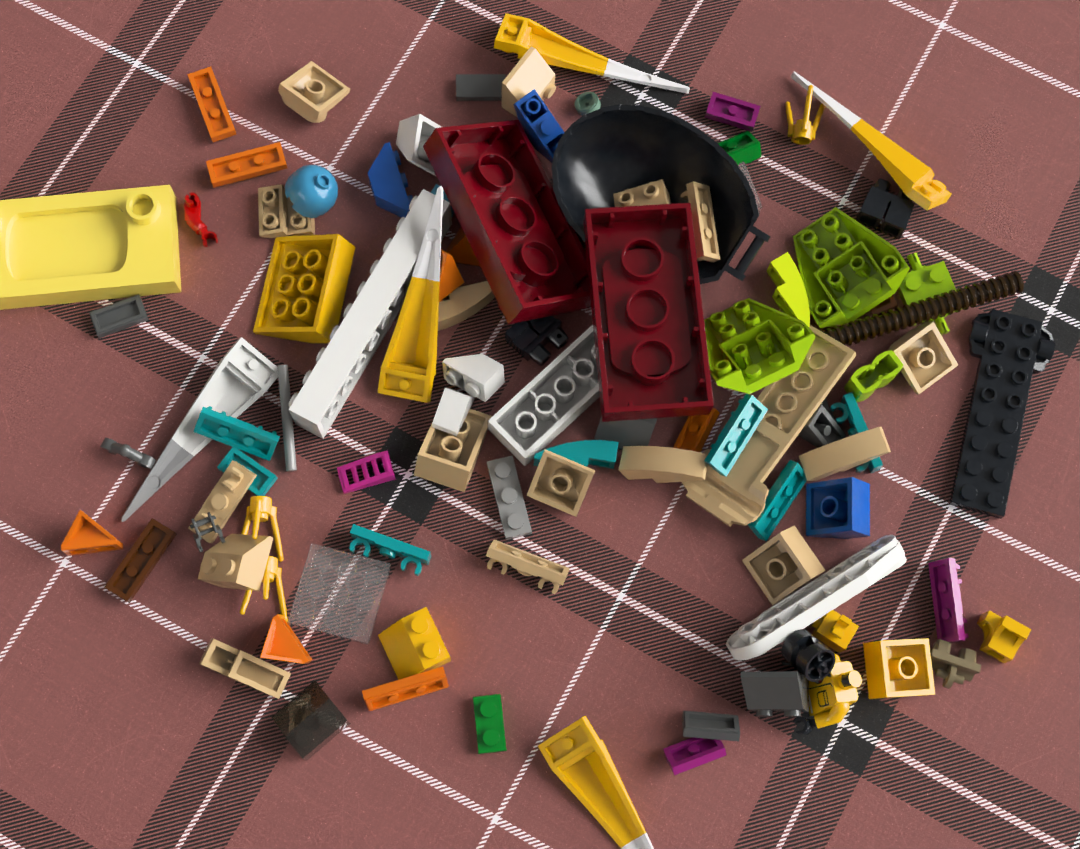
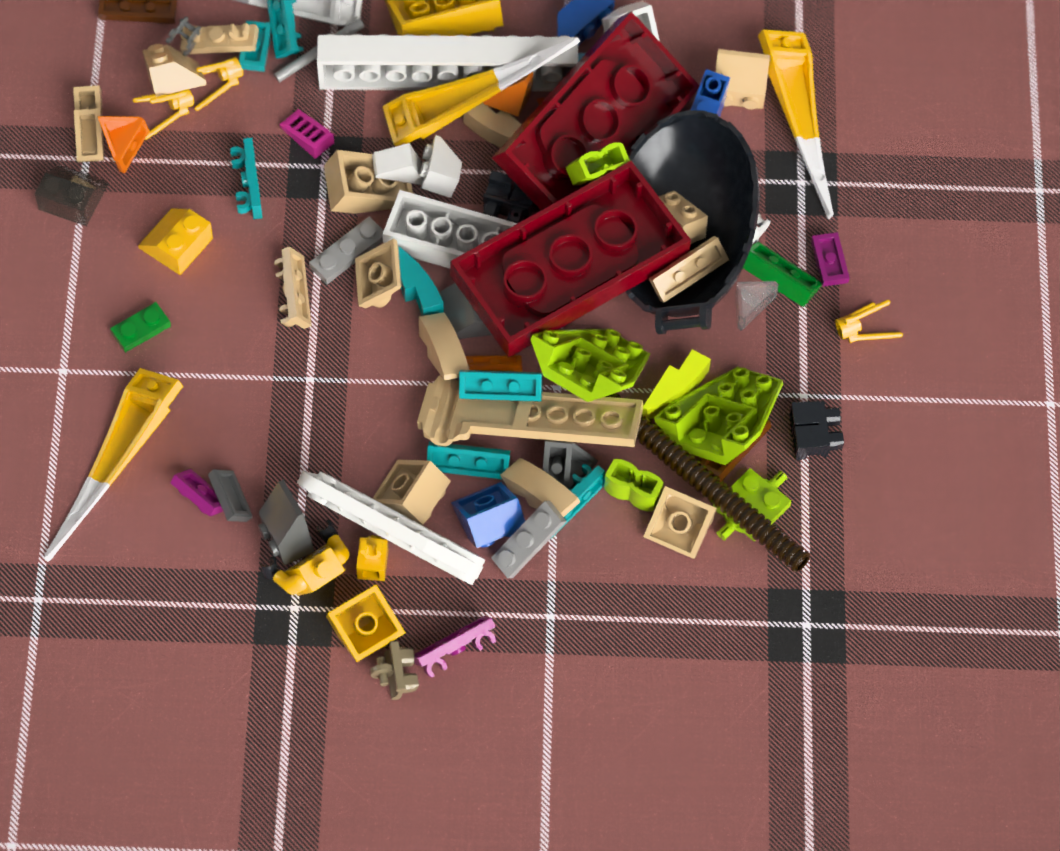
camera: 65 degrees right, 10 degrees down
(339, 593) = (190, 162): clear plate -> none
(405, 688) = (135, 247): orange tile -> none
(479, 87) = (714, 39): dark grey tile -> none
(568, 239) = (597, 164): none -> lime brick
(587, 103) = (759, 139): sand green tile -> none
(808, 655) = (327, 526): black wheel -> none
(888, 488) = (528, 539): none -> light grey plate
(906, 170) = (859, 429): yellow plate -> none
(1001, 636) = (445, 702): yellow brick -> none
(1008, 355) = (736, 600): black piece -> none

